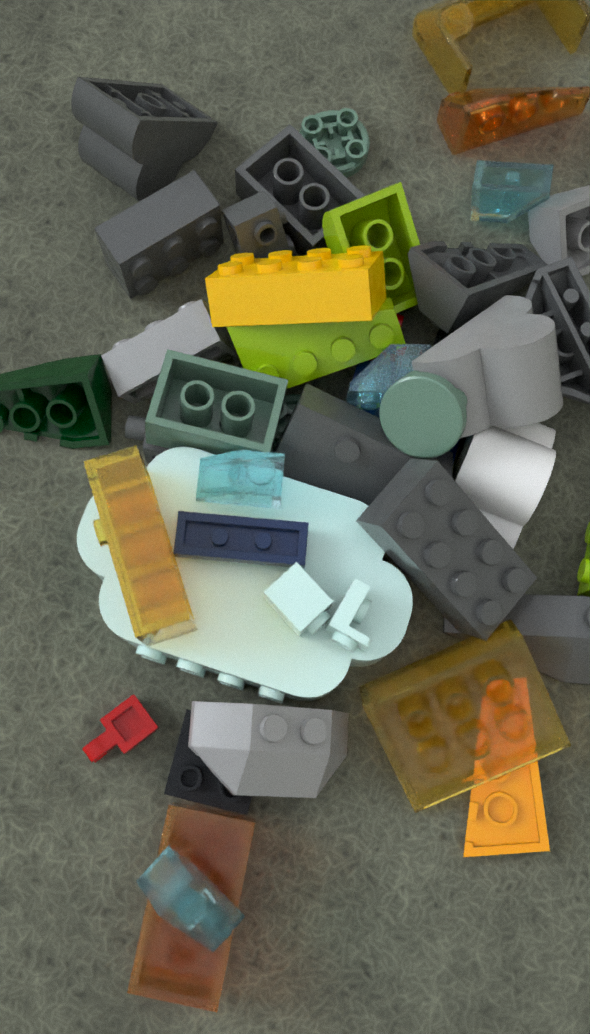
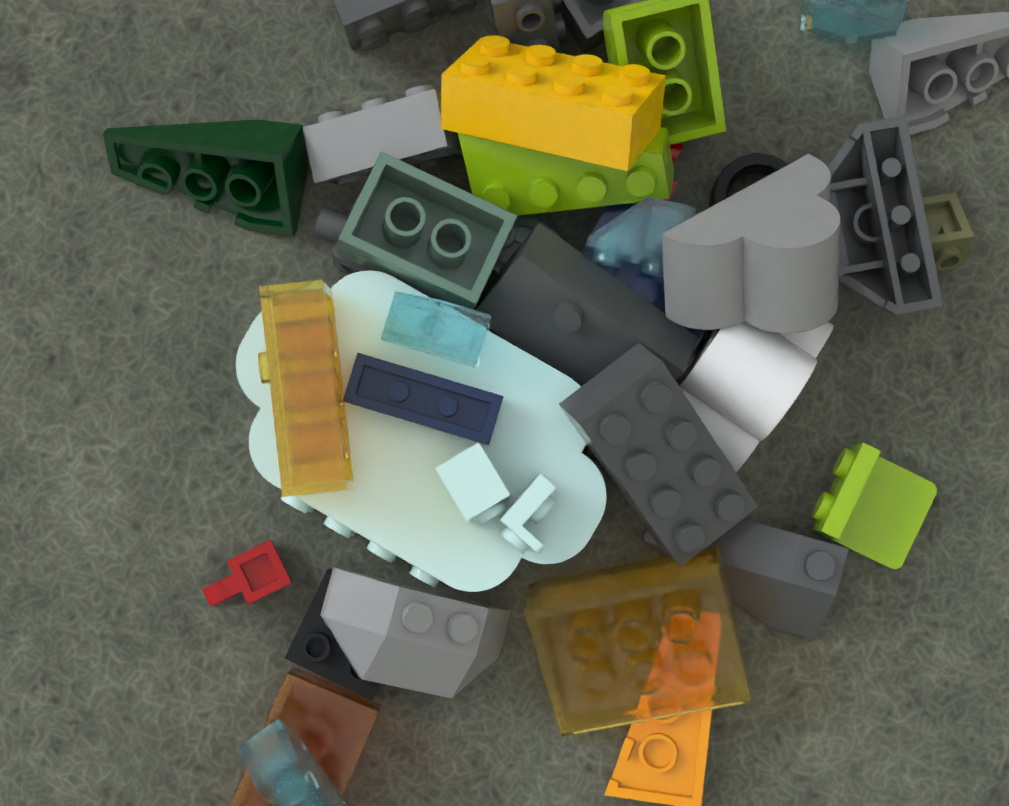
camera: 15 degrees right, 10 degrees up
(423, 414) = (662, 298): sand green tile -> none
(466, 280) = (769, 118): dark grey wedge -> none

